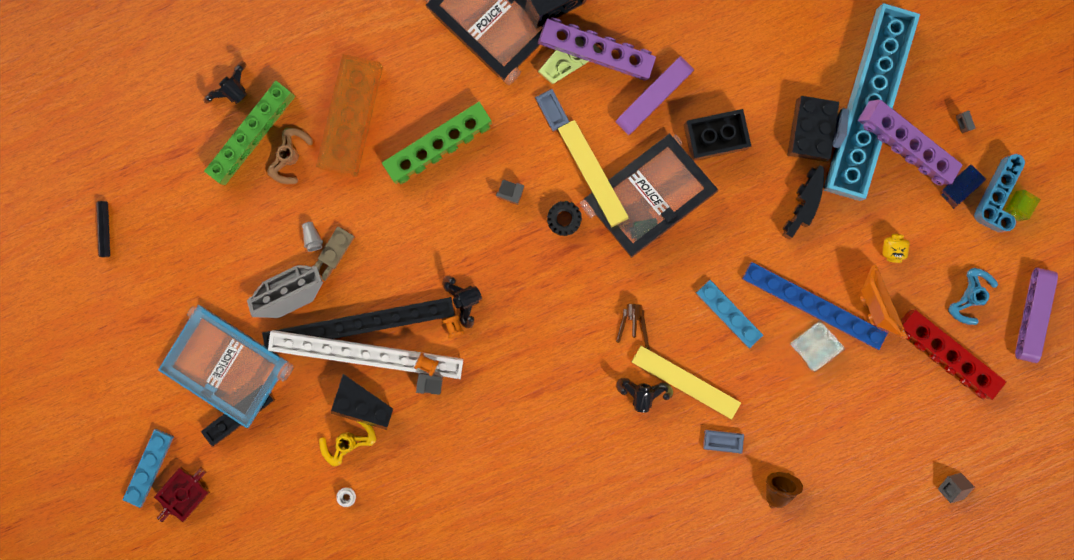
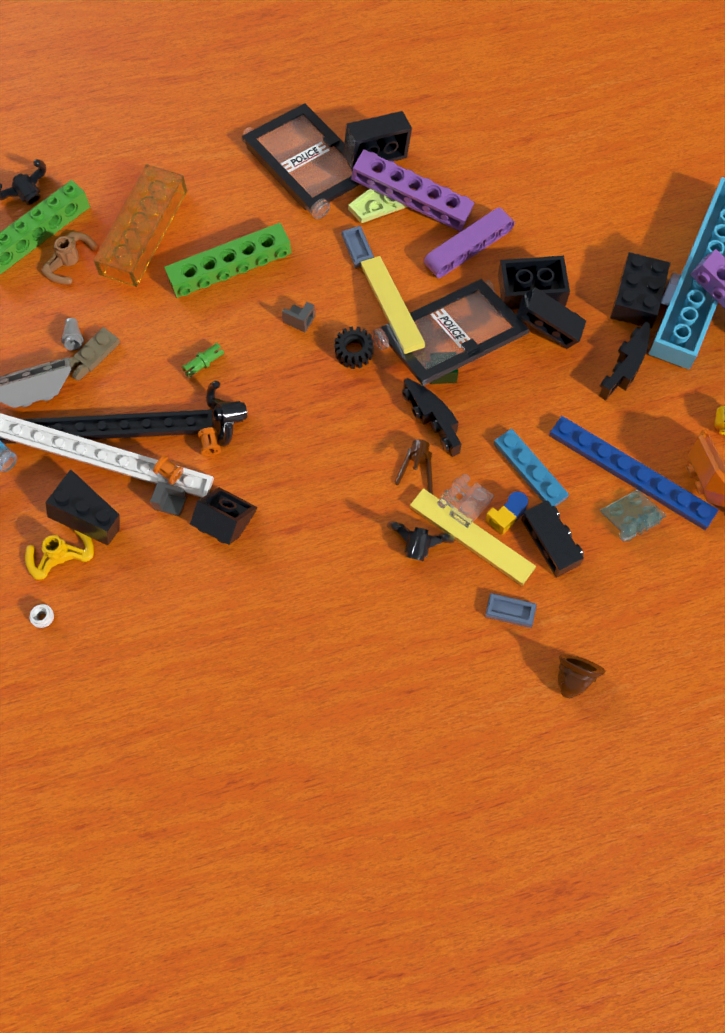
camera: 10 degrees right, 20 degrees down
(433, 248) = (202, 360): none -> bright green pin
(478, 392) = (222, 515): none -> black slope
(638, 270) = (433, 410): none -> black slope
(682, 356) = (472, 503): none -> clear plate
(715, 359) = (509, 513): none -> leg
(736, 172) = (551, 318): none -> black brick
(753, 377) = (552, 538): none -> black brick

